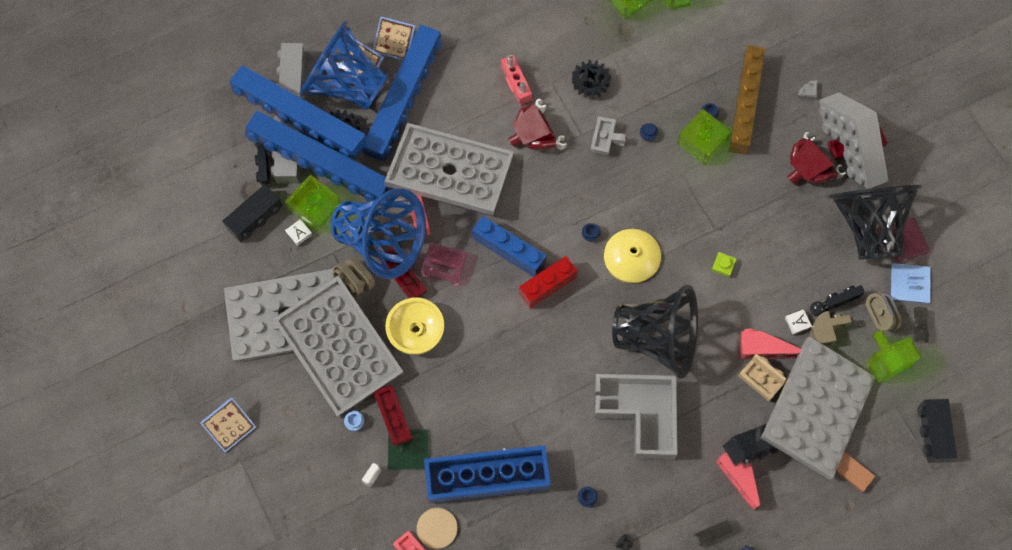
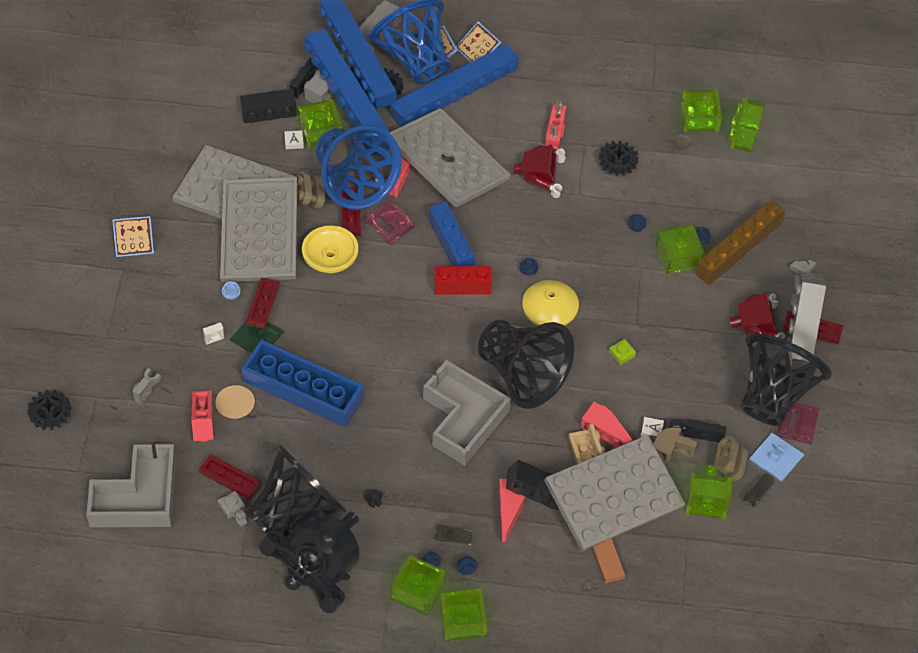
camera: 30 degrees right, 15 degrees down
(587, 496) = (371, 449): dark blue plate -> none
(605, 135) = (597, 204): light grey plate -> none
(937, 430) = (706, 573): black brick -> none

